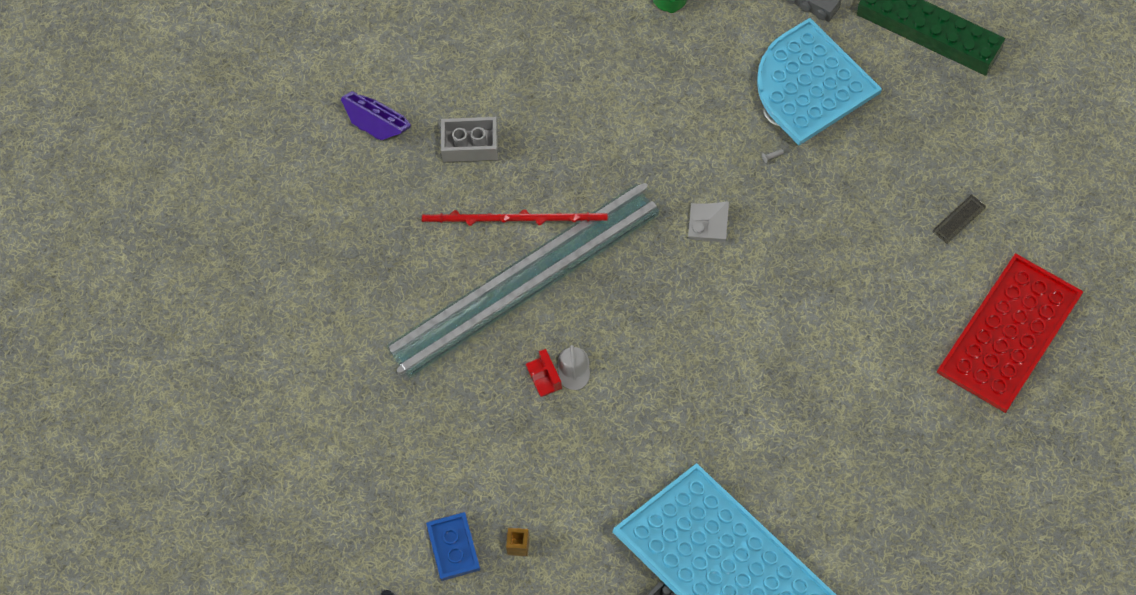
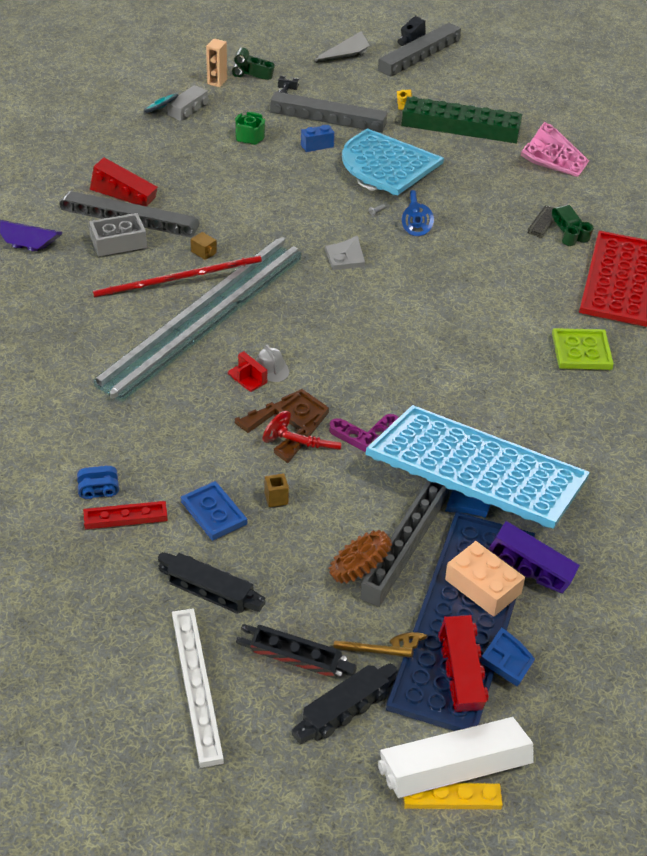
camera: 25 degrees left, 20 degrees down
(361, 490) = (97, 482): none -> blue brick
(369, 529) = (125, 515): none -> red plate
(493, 105) = (150, 217): none -> dark grey beam
(497, 58) = (121, 184): none -> red wedge
(546, 465) = (280, 430): none -> red dish
(557, 175) = (203, 245): none -> pearl gold brick
(579, 441) = (305, 417): none -> reddish brown wing
(632, 490) = (342, 430): none -> magenta beam
(743, 24) = (317, 138): none -> blue brick
(810, 183) = (413, 211): none -> blue dish
(914, 429) = (582, 349): none -> lime plate
(985, 237) = (571, 225): none -> dark green piece
(1021, 108) = (554, 151): none -> bright pink wedge

